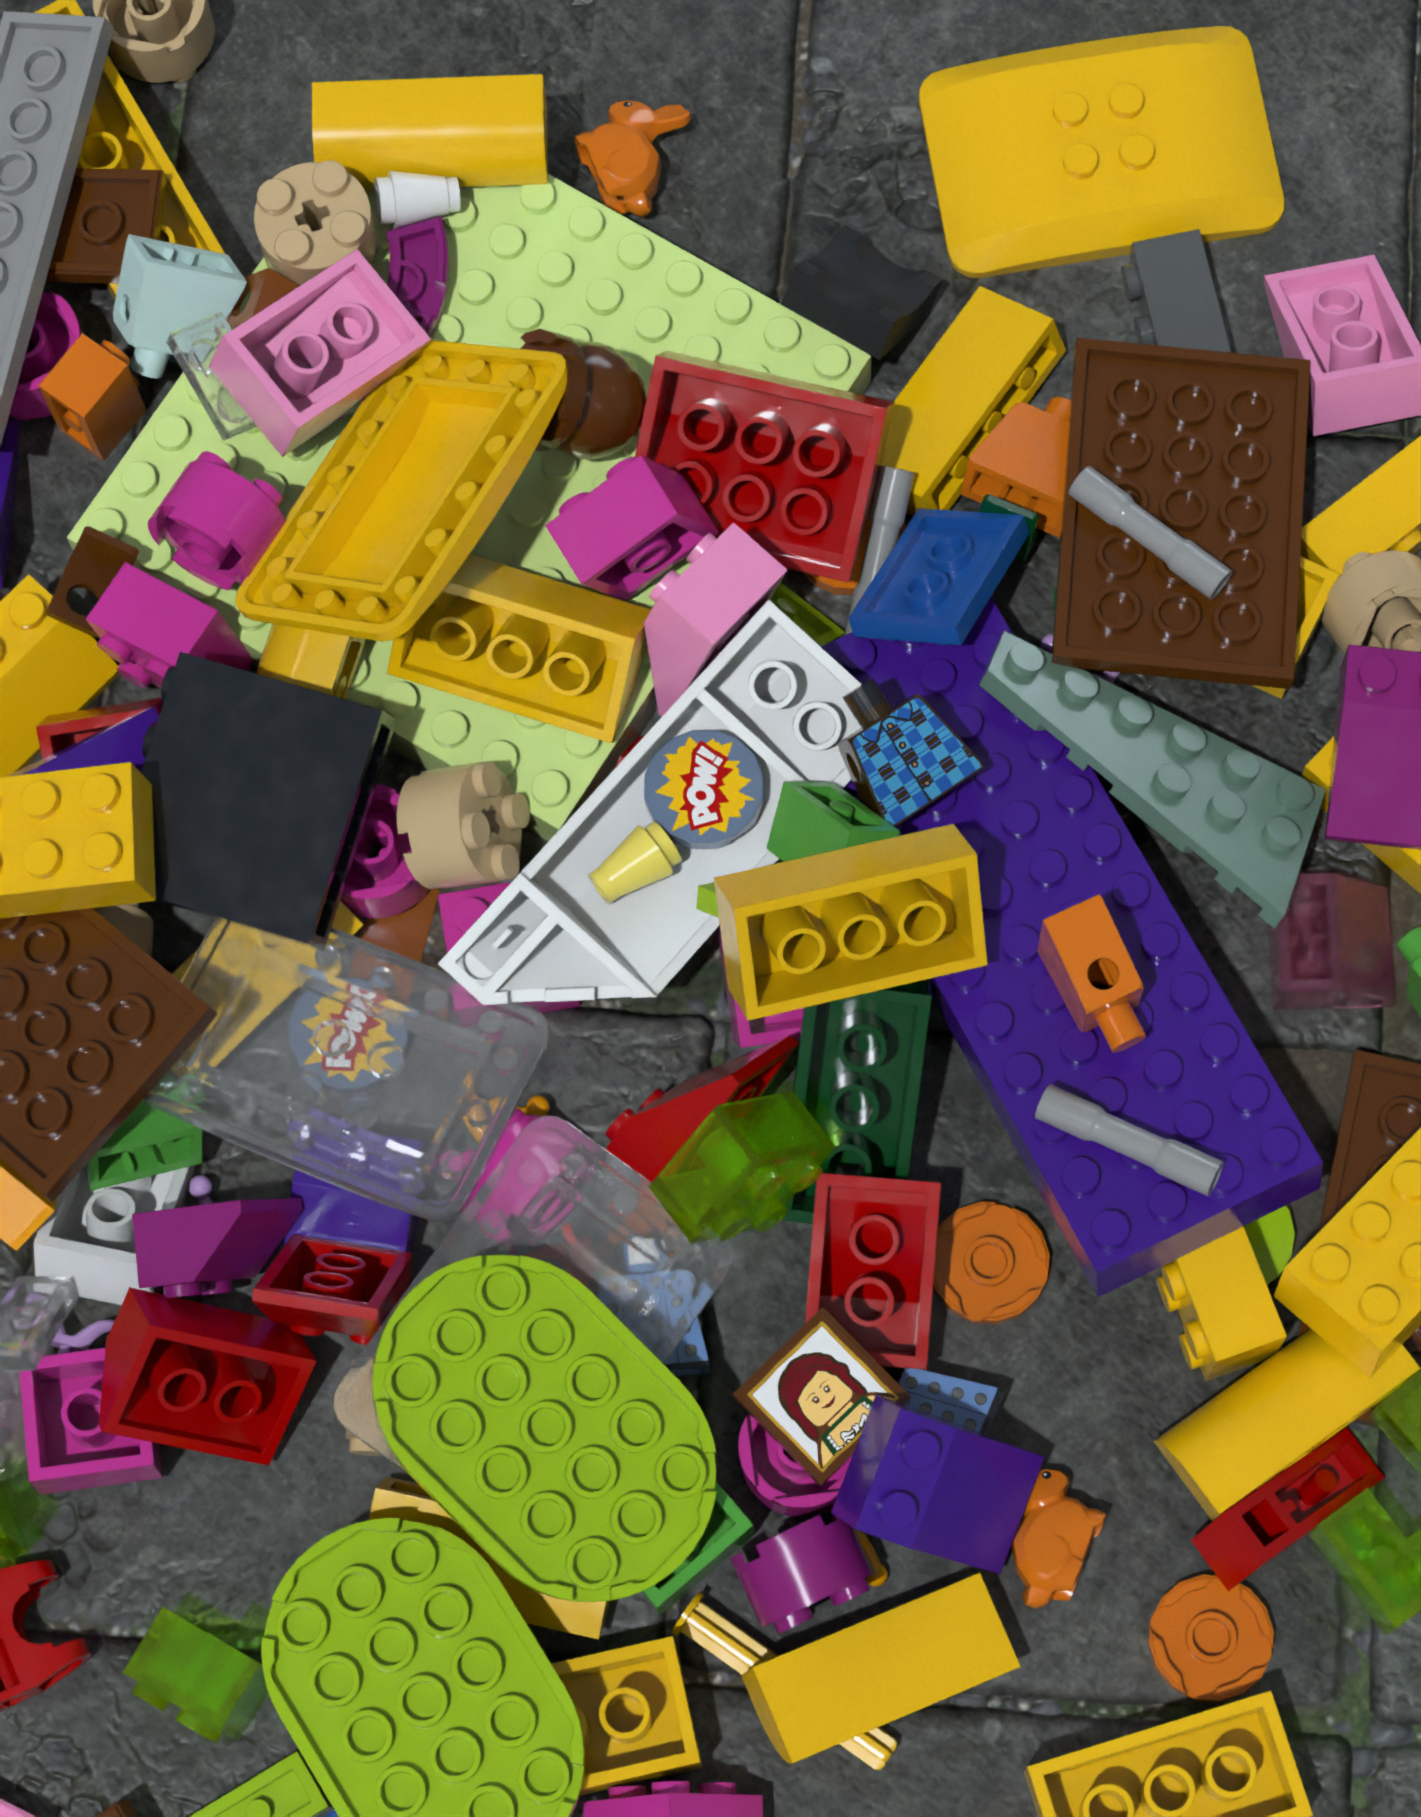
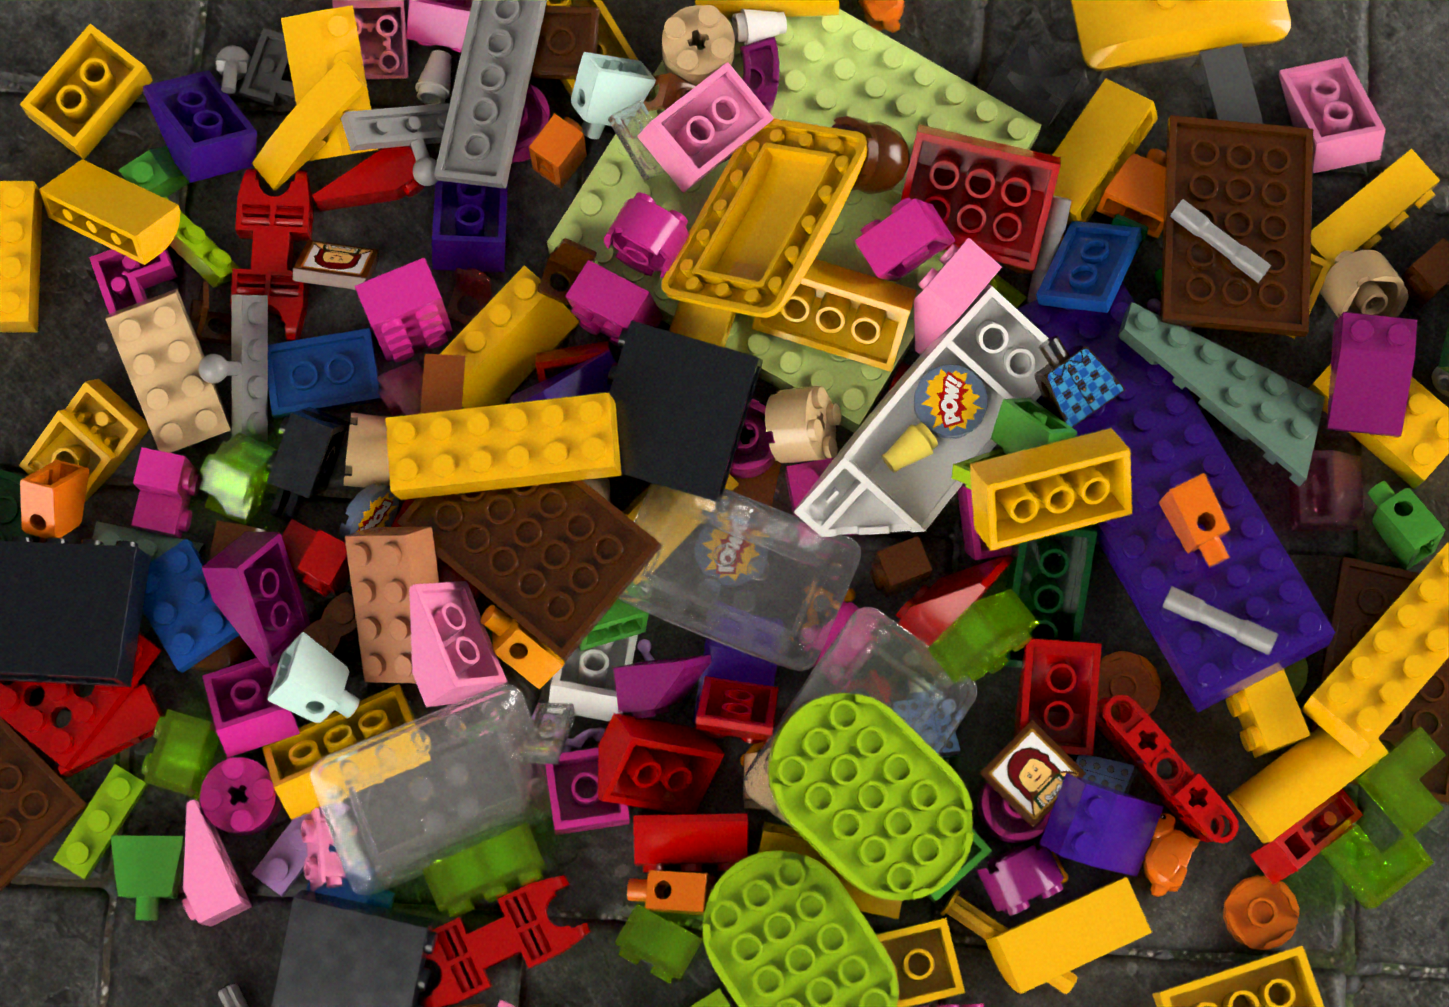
camera: 10 degrees left, 5 degrees up
(220, 1587) = (687, 896): none -> orange torso
(253, 1502) = (690, 841): none -> red slope
(618, 1059) = (900, 567): none -> reddish brown brick
(1061, 1429) = (1183, 792): none -> red piece

